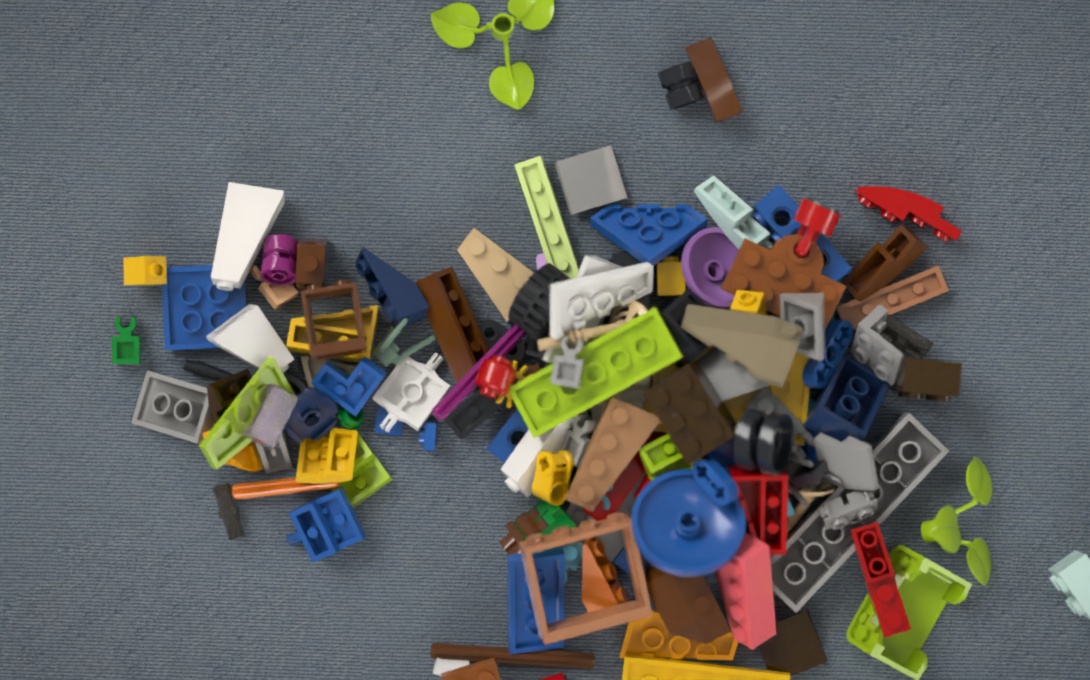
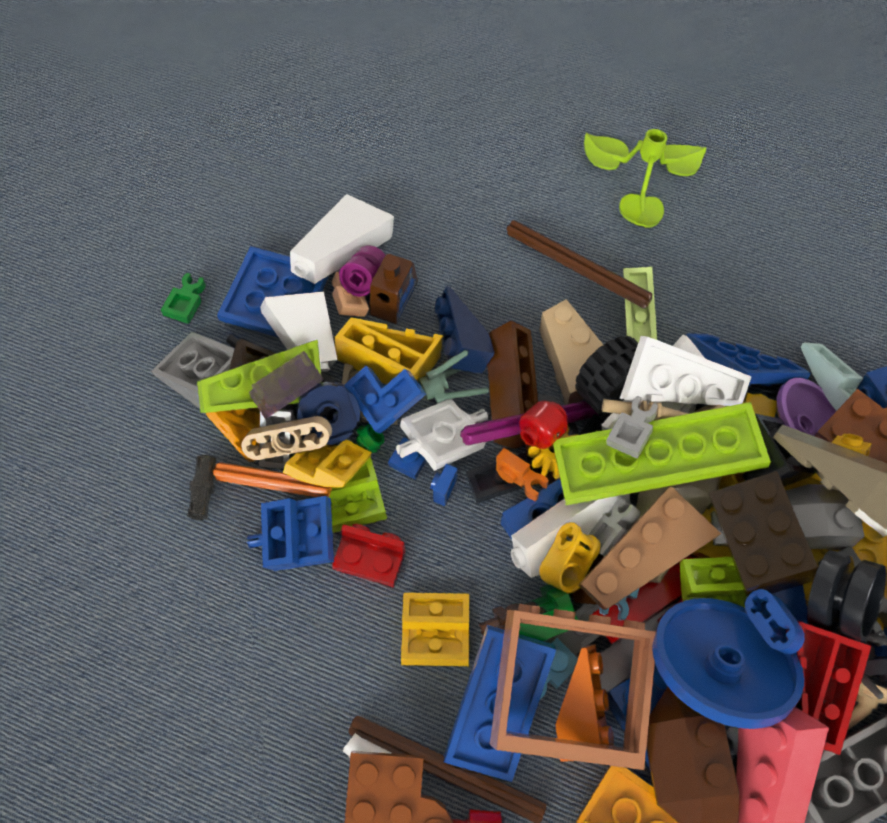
camera: 25 degrees right, 25 degrees down
(145, 270) = (233, 241): yellow brick -> none
(301, 442) = (296, 428): none -> tan beam
(339, 348) = (387, 348): reddish brown window -> none
(391, 518) = (369, 554): none -> red bracket
(466, 555) = (435, 629): none -> yellow slope
(470, 175) = (580, 264): none -> reddish brown axle
(482, 410) = (516, 470): none -> orange plate
(590, 180) = (695, 307): light grey slope -> none
(680, 85) = (809, 253): black wheel -> none
(713, 80) = (844, 264): reddish brown slope -> none

